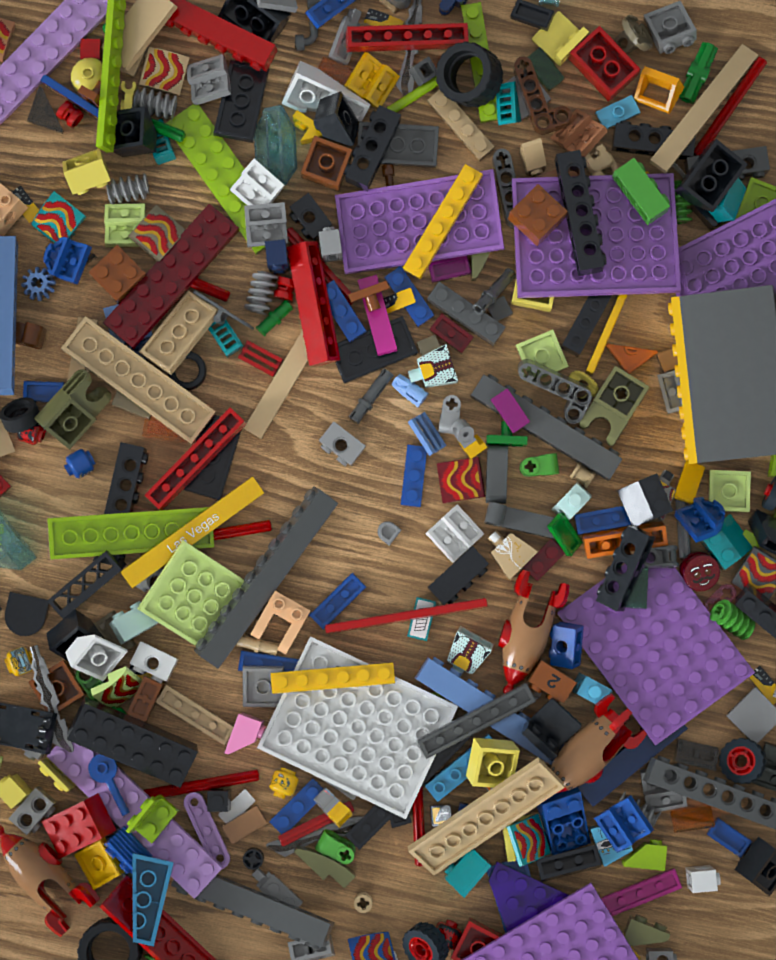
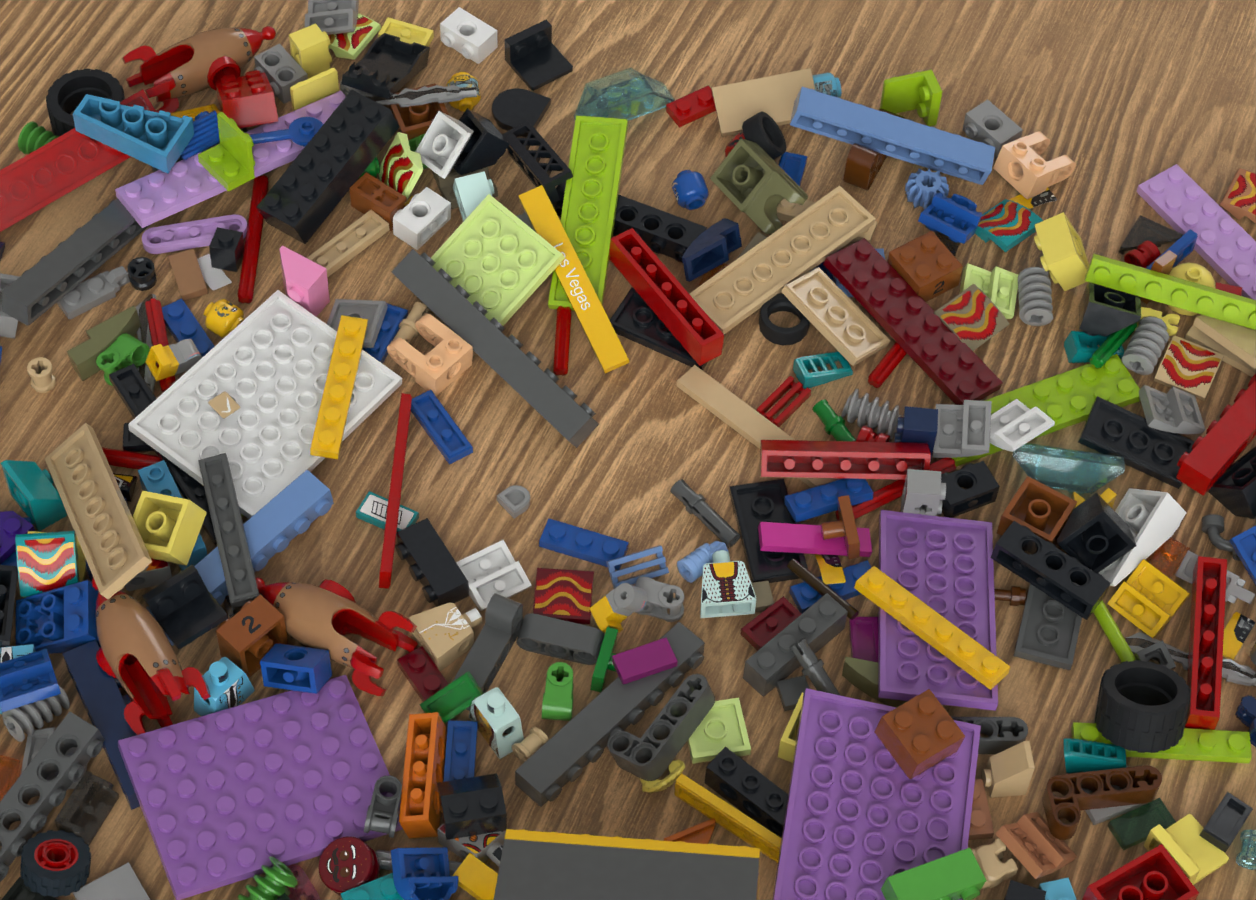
camera: 95 degrees right, 30 degrees down
(138, 435) = (711, 248): none -> dark blue slope
(222, 313) = (852, 366): dark grey shield -> none
(332, 436) = (640, 479): light grey brick -> none
(370, 756) = (224, 404): none -> tan sticker
(420, 302) = (820, 586): none -> dark brown bar
(461, 125) = (1062, 703): tan plate -> none
(468, 651) = (327, 551): torso -> none
(575, 162) = (927, 783): black brick -> none
(615, 410) = (624, 804): olive brick -> none
(638, 598) = (348, 772): clear green tile -> none
(643, 543) = (380, 750): black brick -> none

